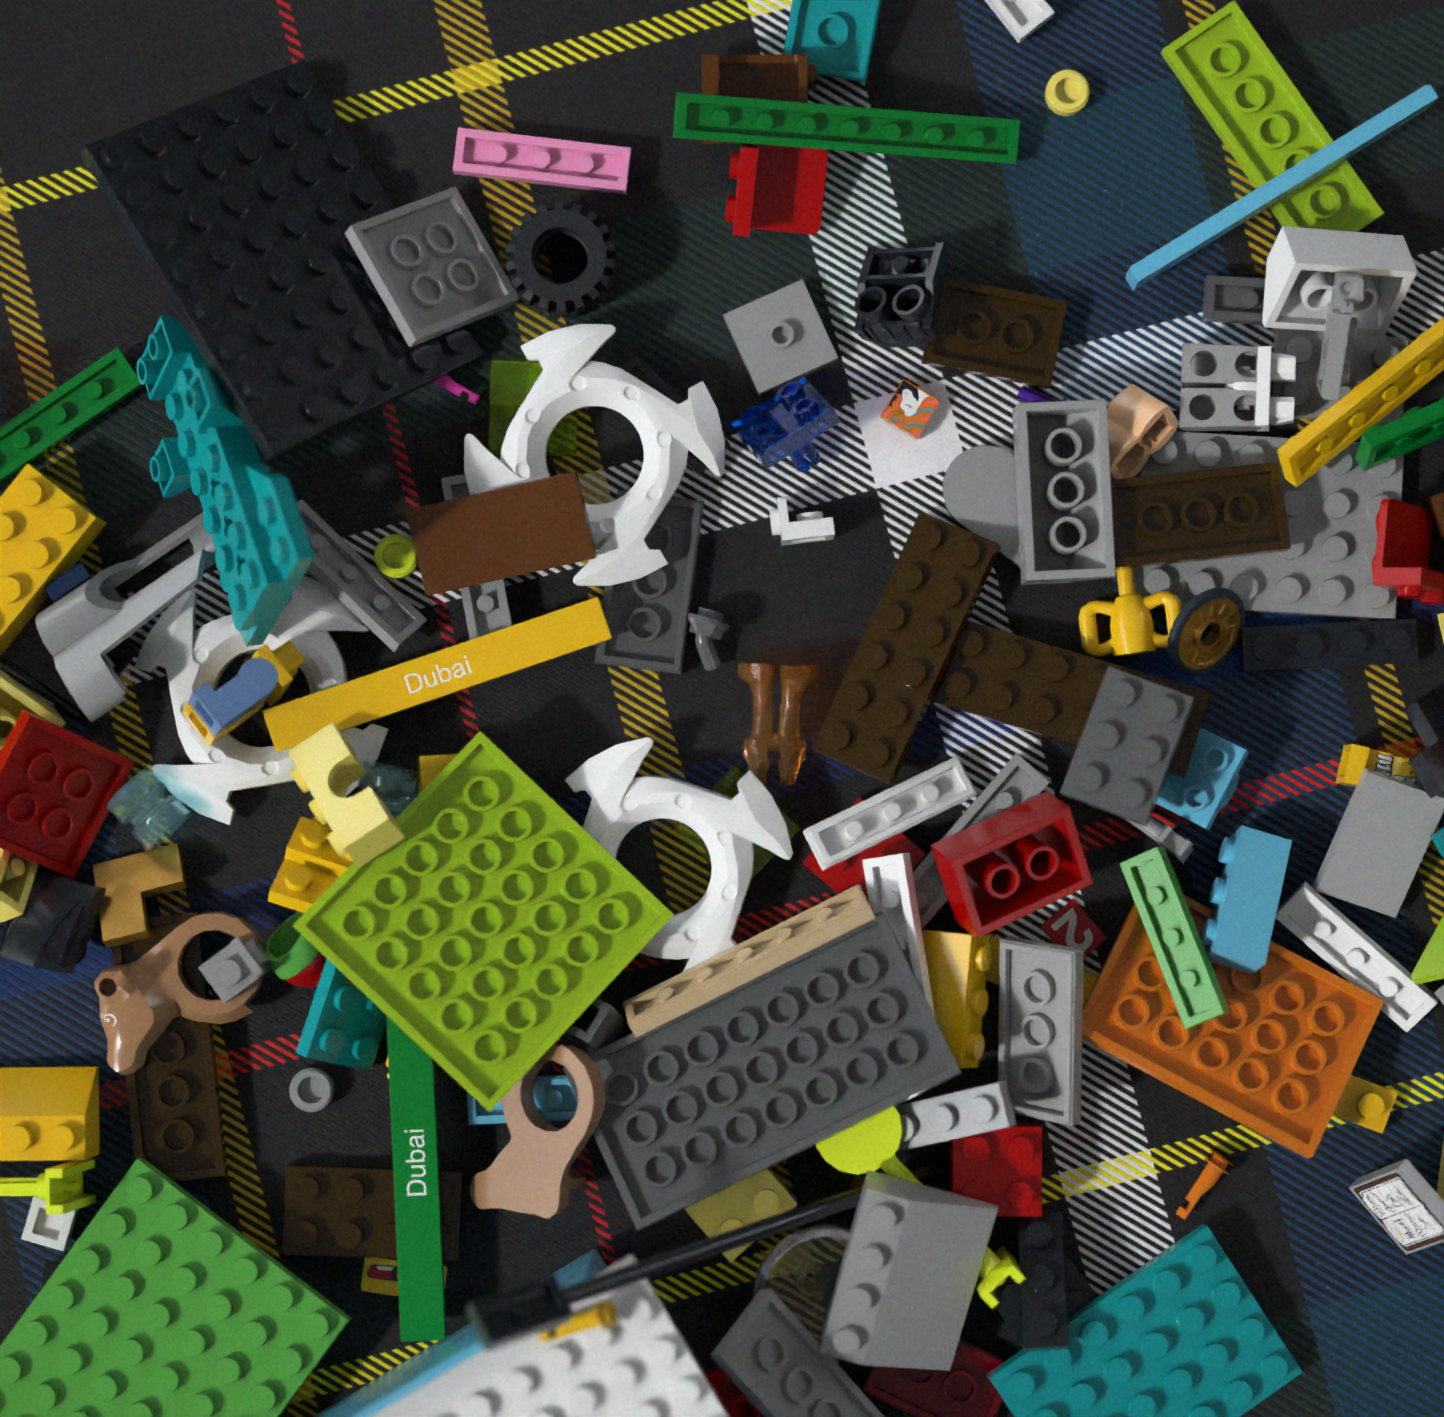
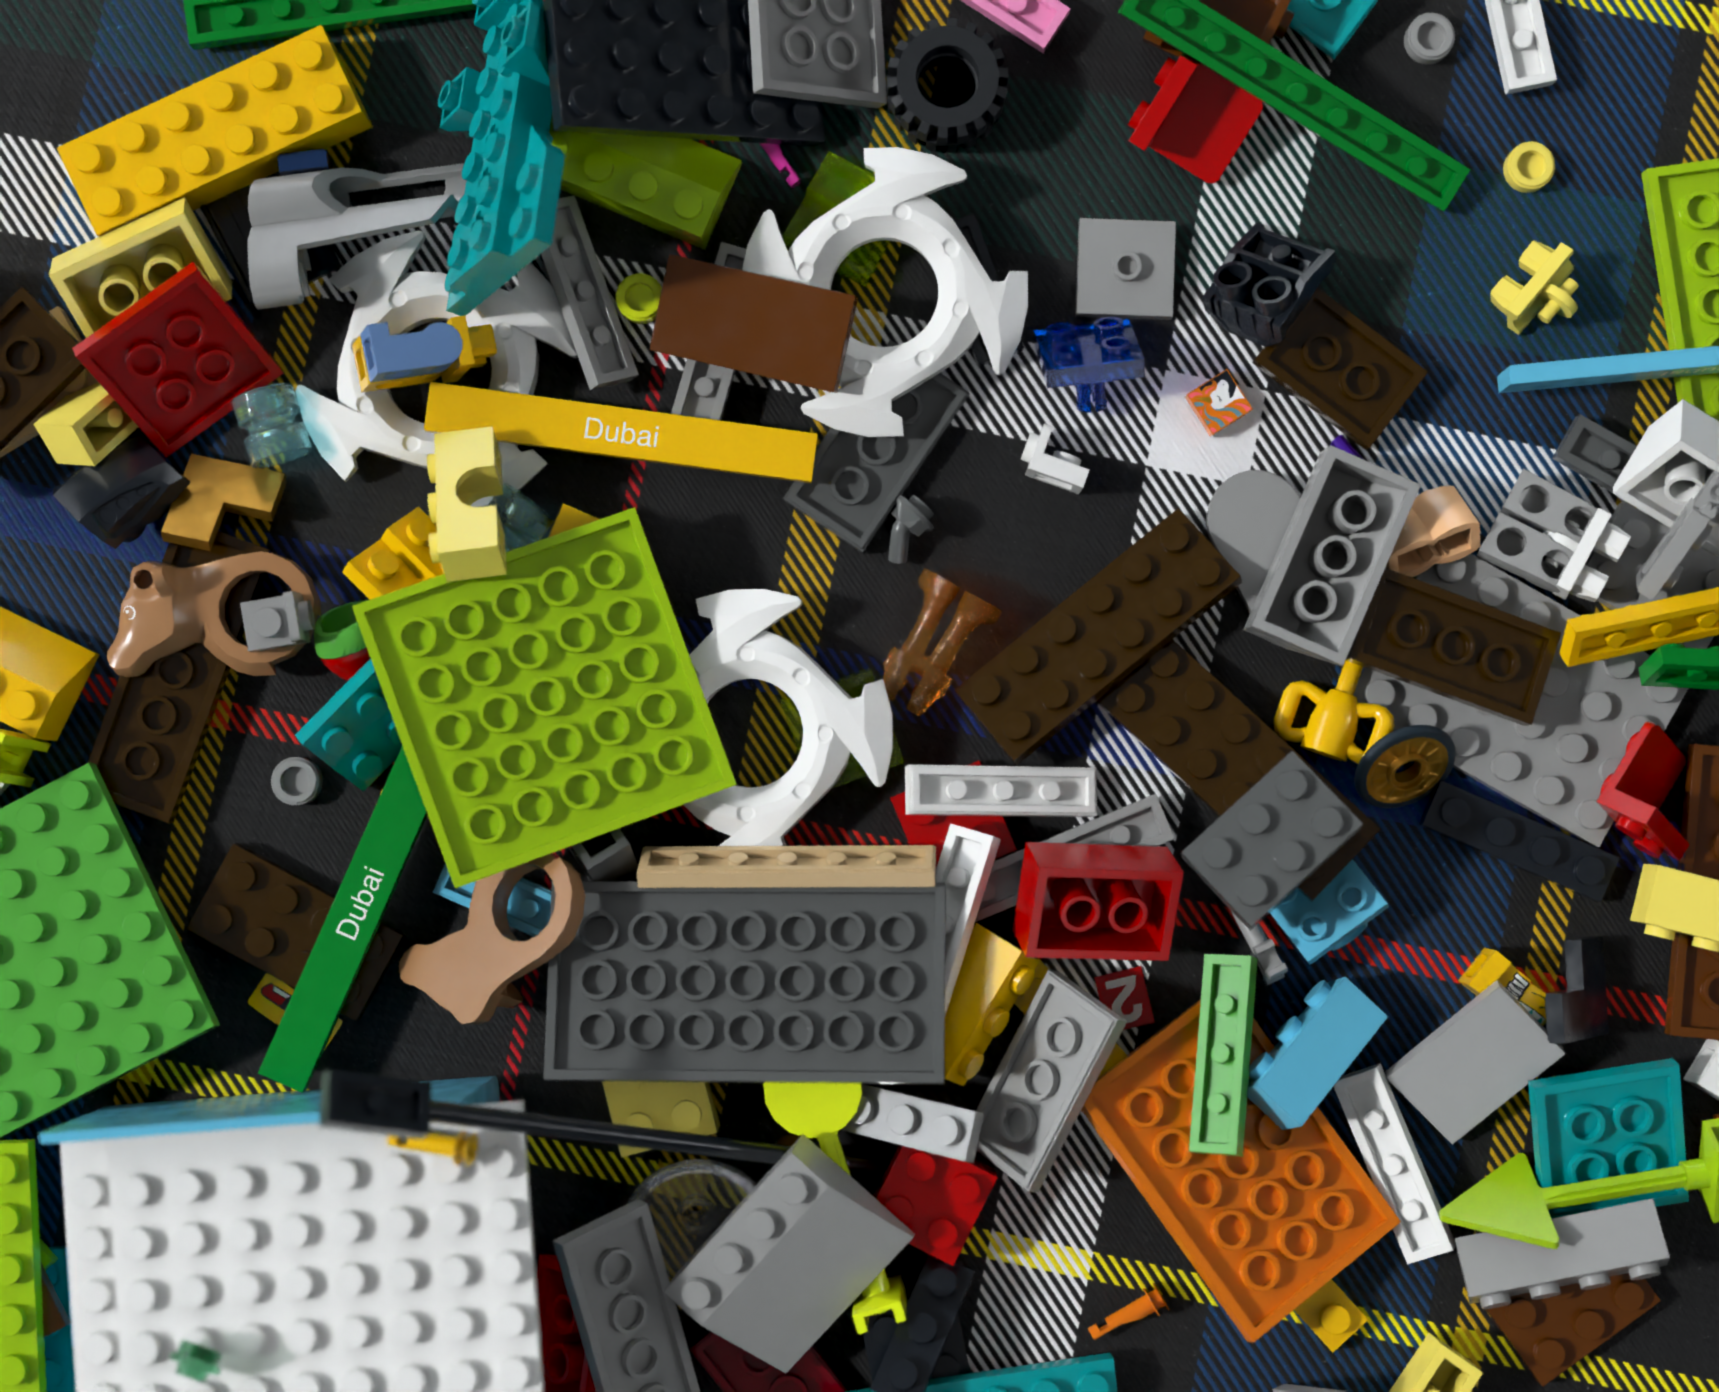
camera: 30 degrees right, 0 degrees up
(366, 456) = (653, 180): none -> lime slope
(934, 27) = (1429, 38): none -> light grey tile
(1125, 171) = (1544, 289): none -> light yellow hips

